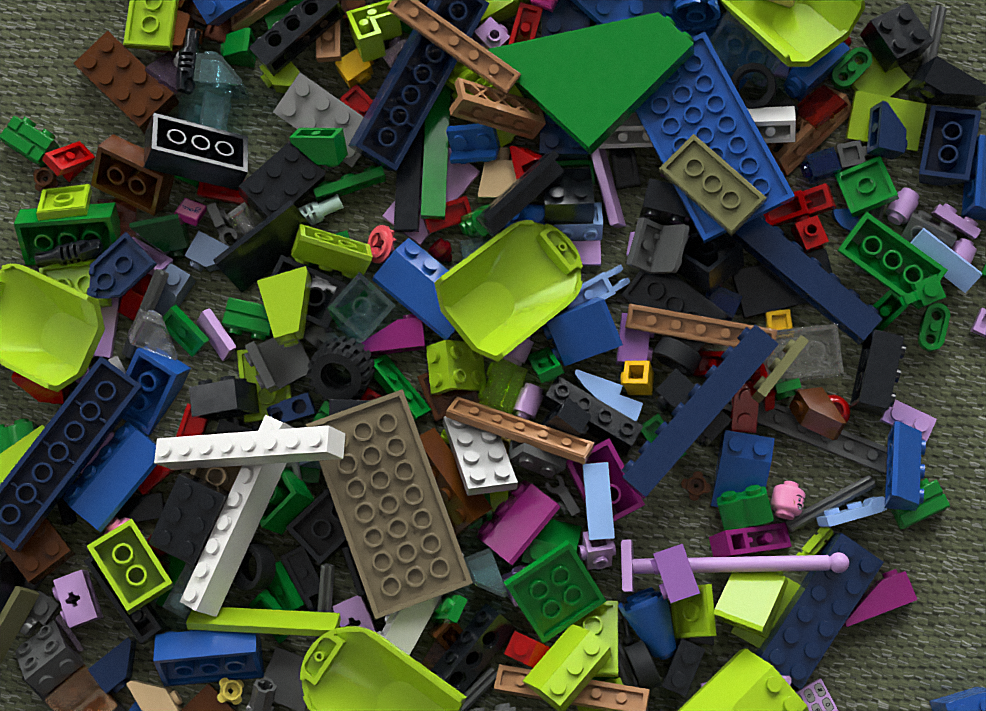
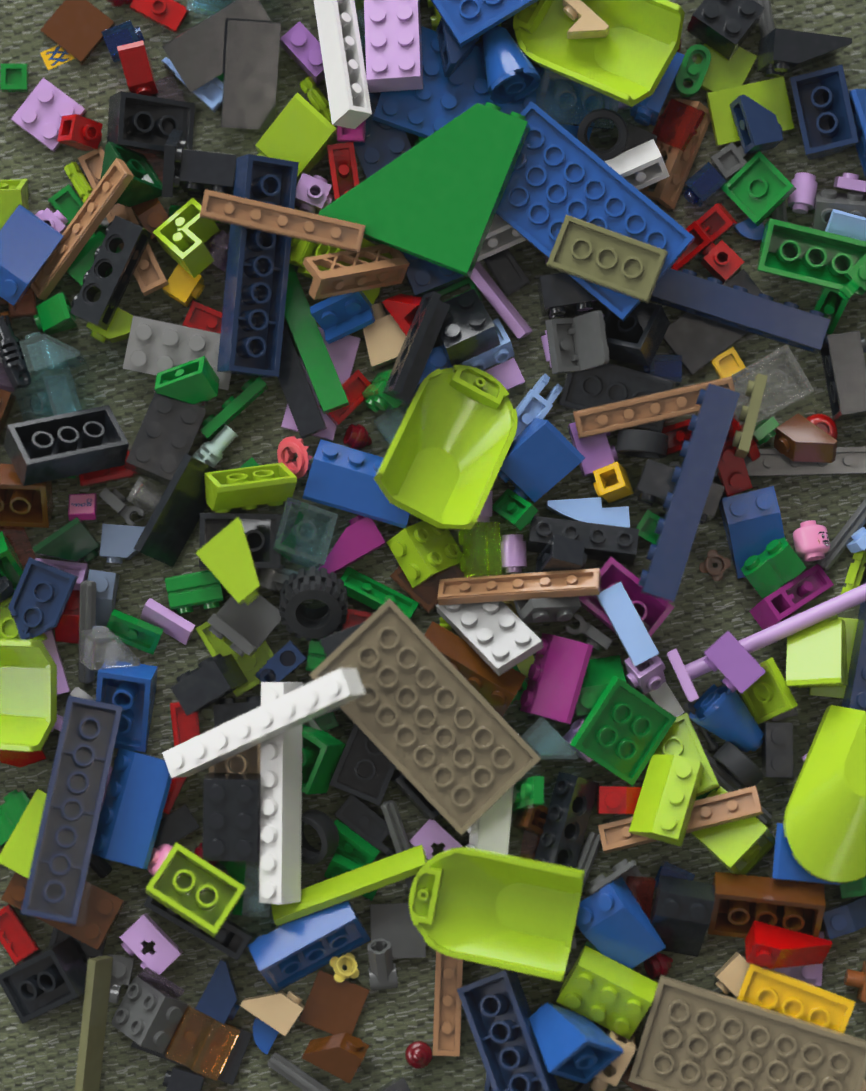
camera: 30 degrees left, 5 degrees up
(605, 582) = (665, 698): none -> white sticker

